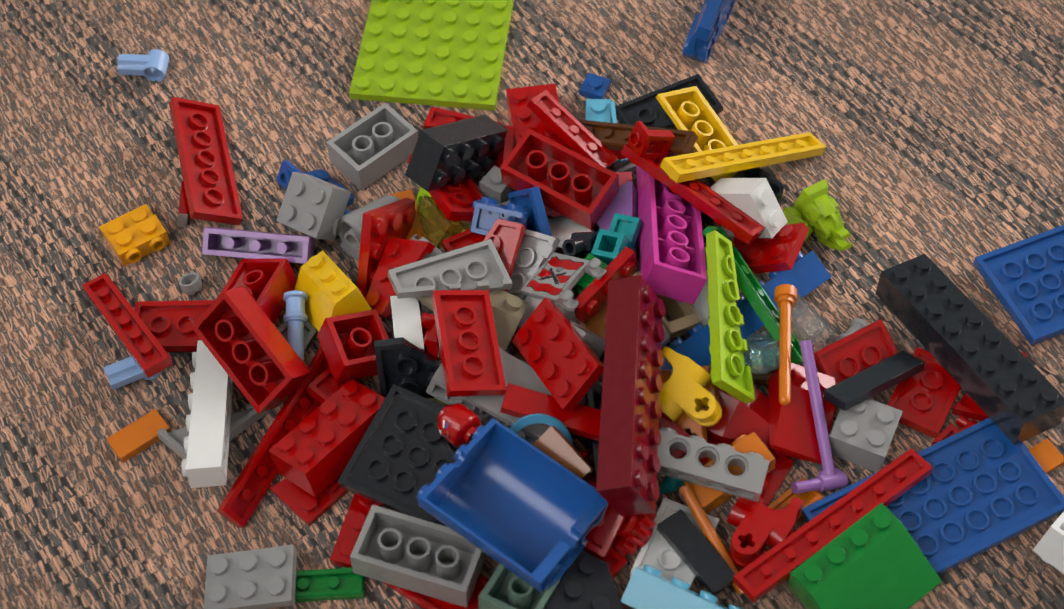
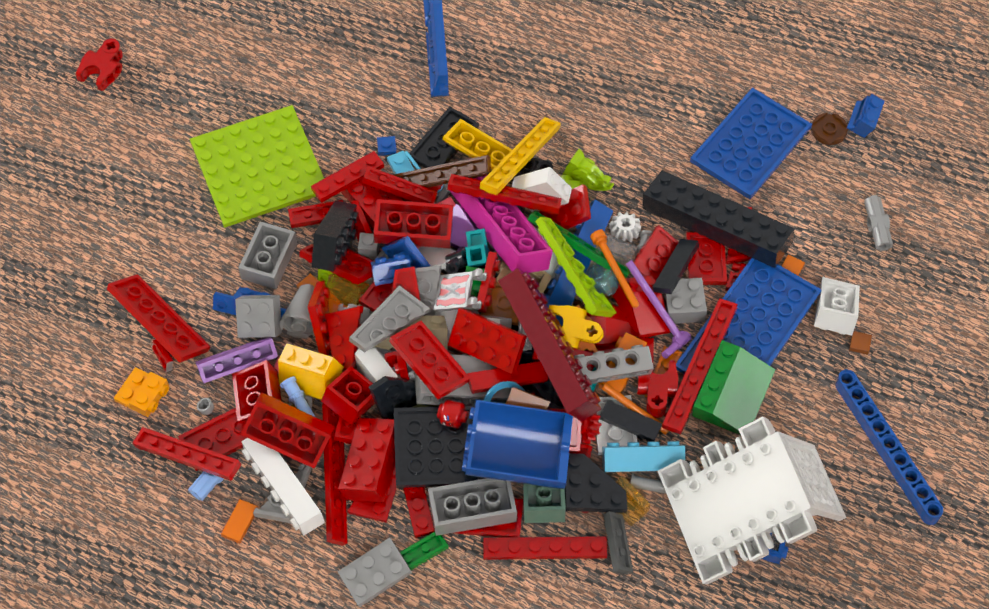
camera: 30 degrees left, 5 degrees up
(150, 66) = (67, 266): light blue piece -> none
(514, 94) = (346, 177): none -> red plate
(650, 142) = (463, 176): red bracket -> none
(837, 304) = (625, 226): none -> white gear

